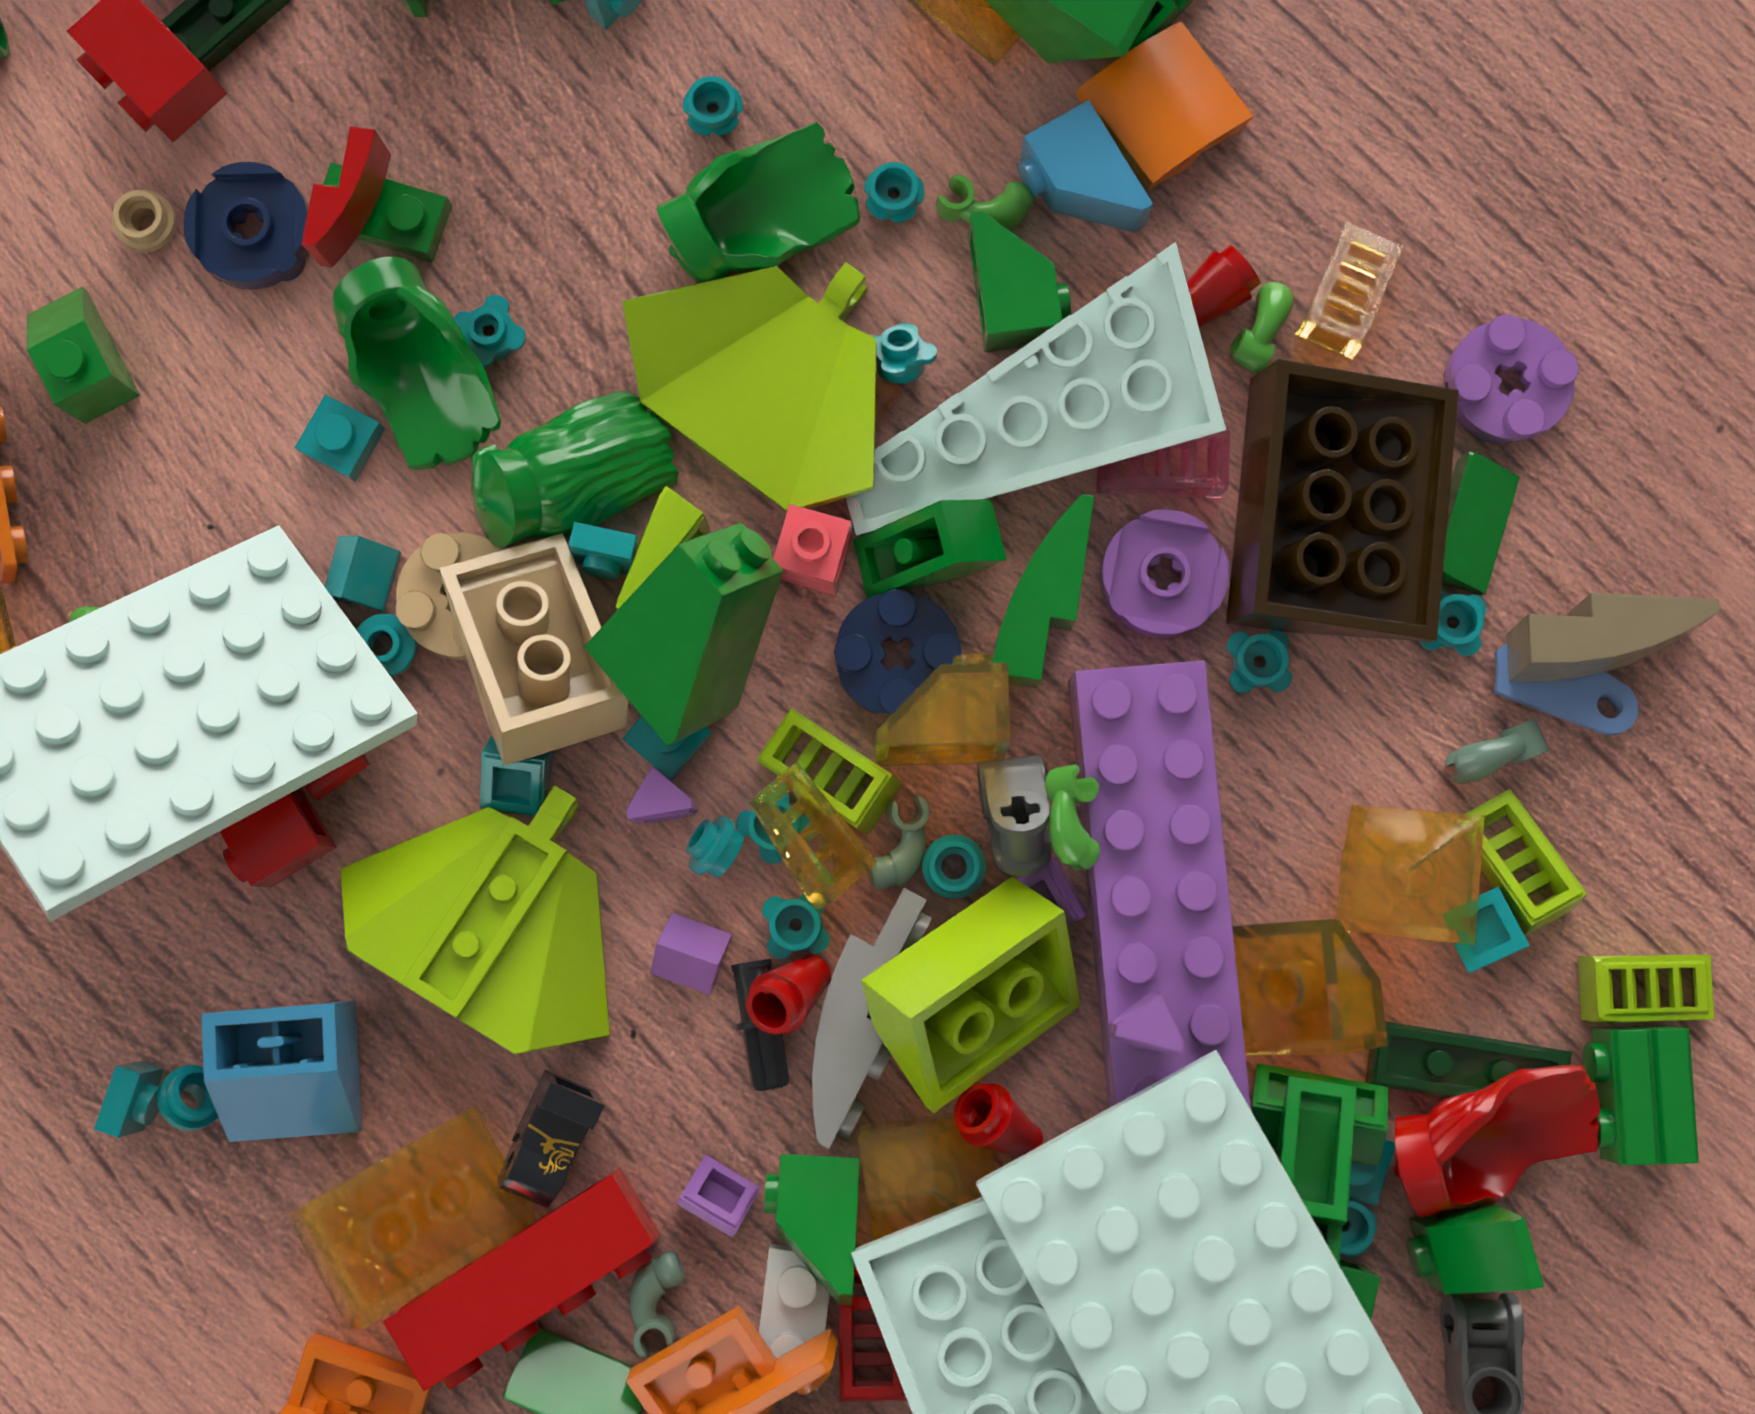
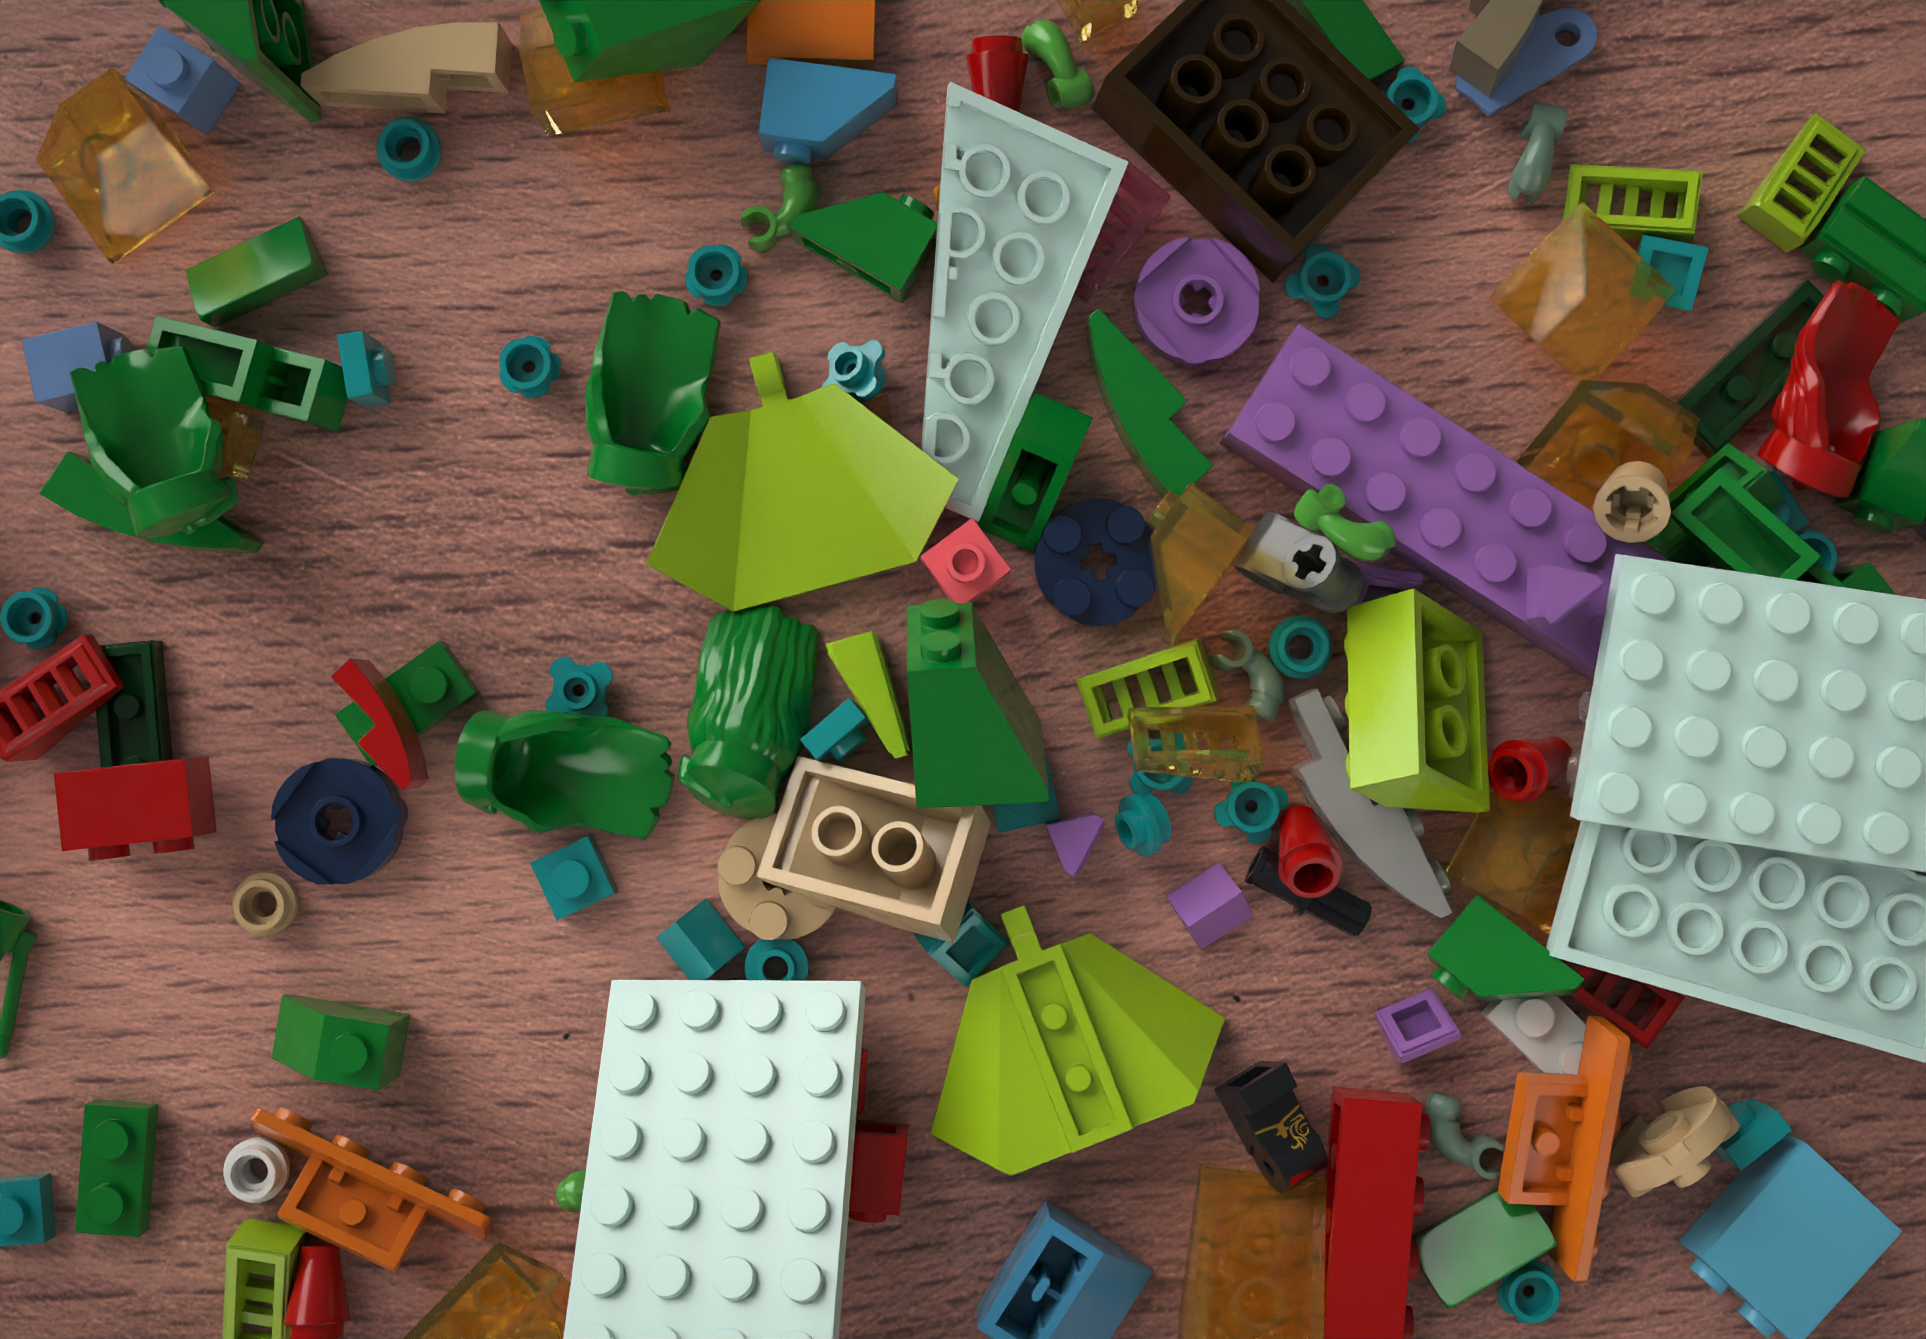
camera: 55 degrees left, 5 degrees up
(1271, 1035) = (1633, 503): none -> tan hat

